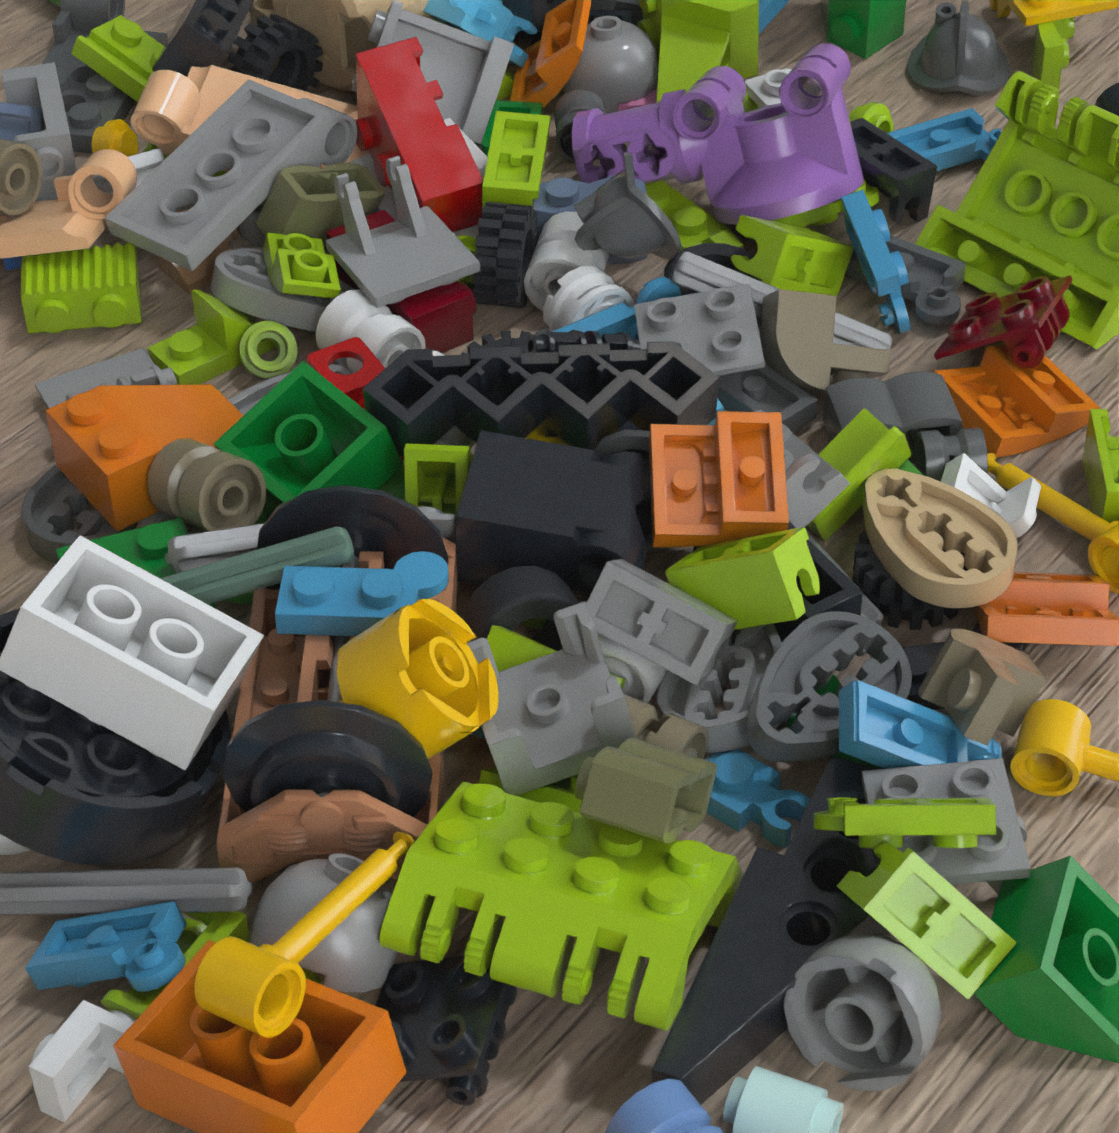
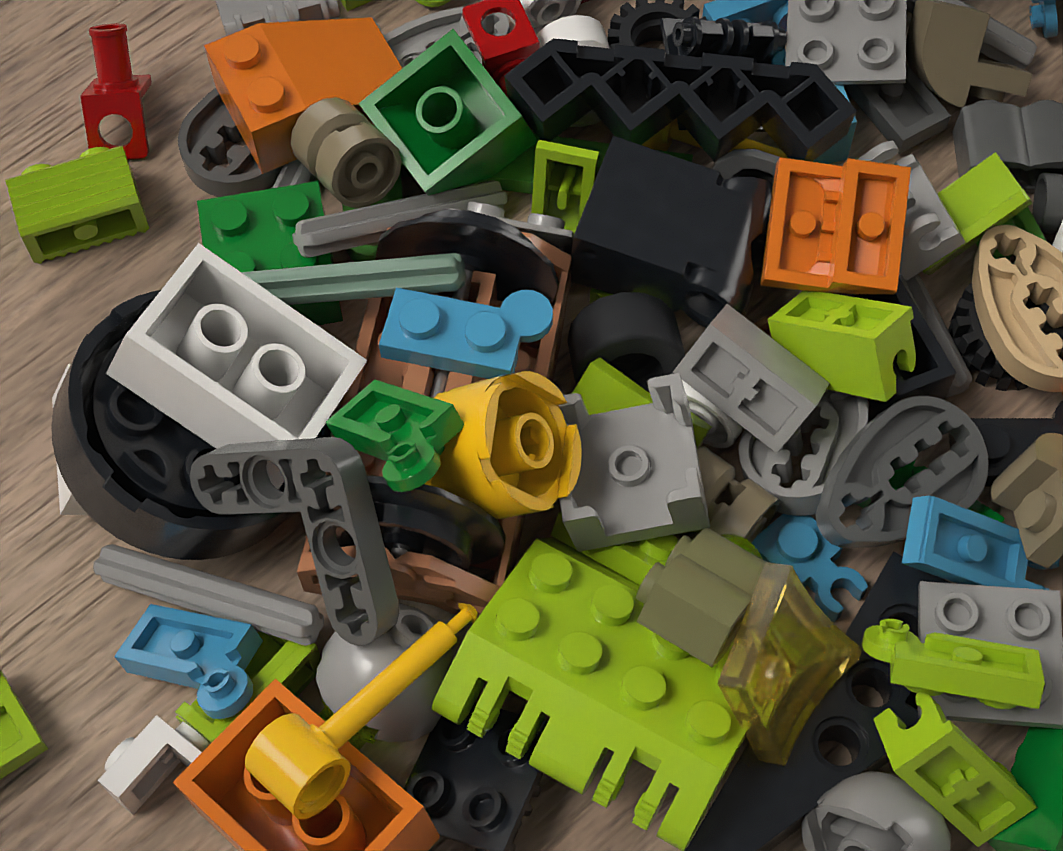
camera: 10 degrees right, 20 degrees up
(228, 733) = (356, 606): none -> dark grey beam
(307, 667) = (400, 429): none -> green hinge
(735, 840) = (782, 663): none -> clear yellow plate

